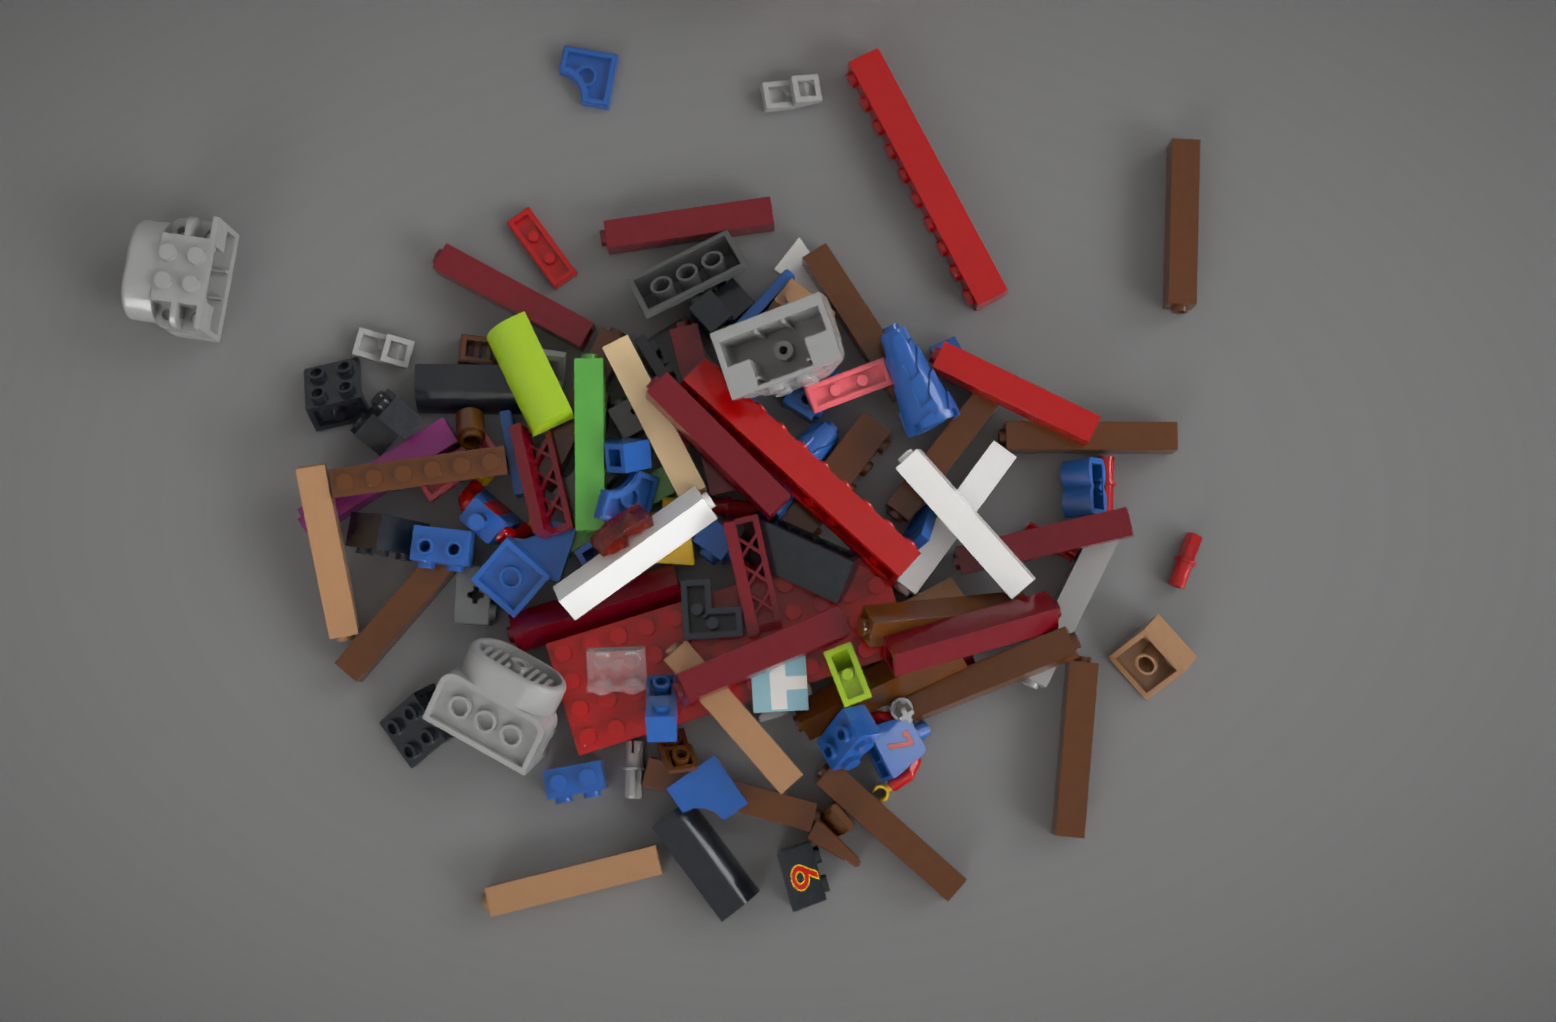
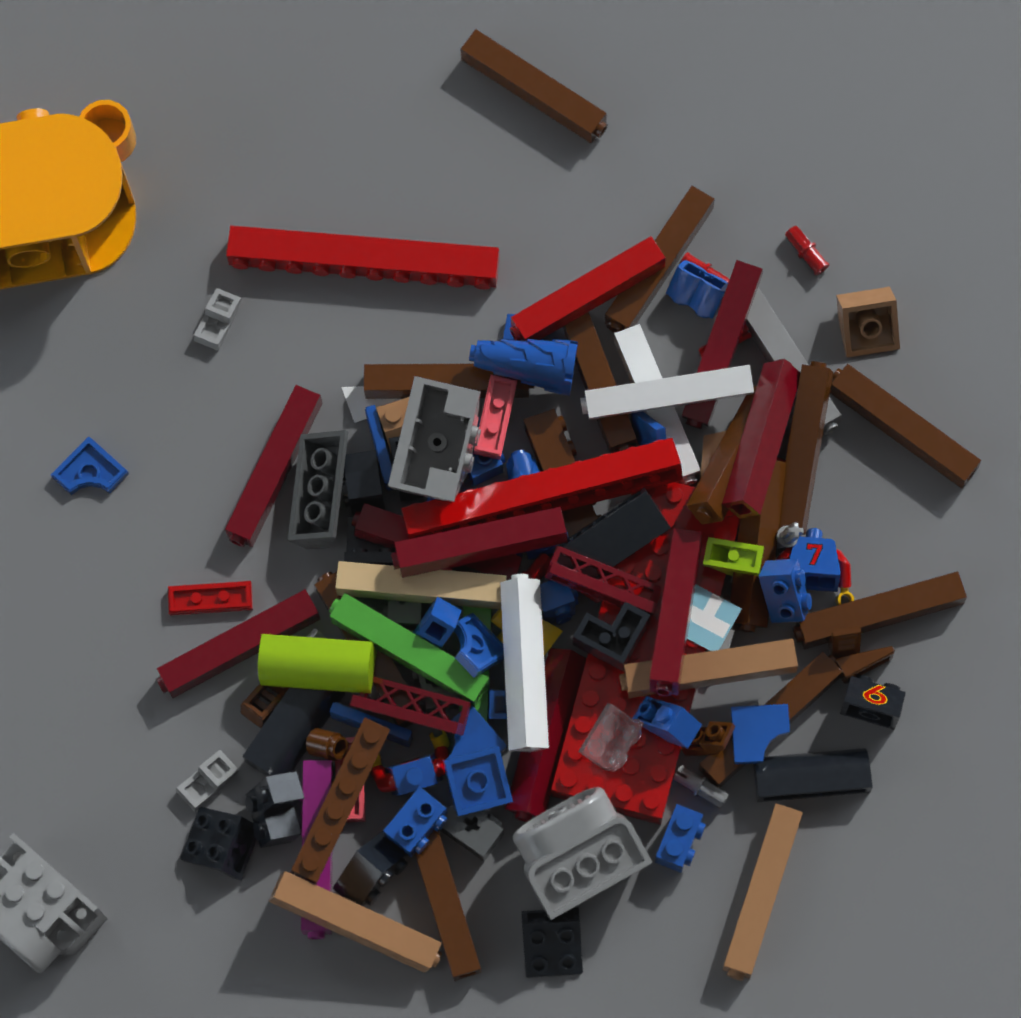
camera: 55 degrees left, 10 degrees down
(615, 532) = (499, 666): clear red slope -> none

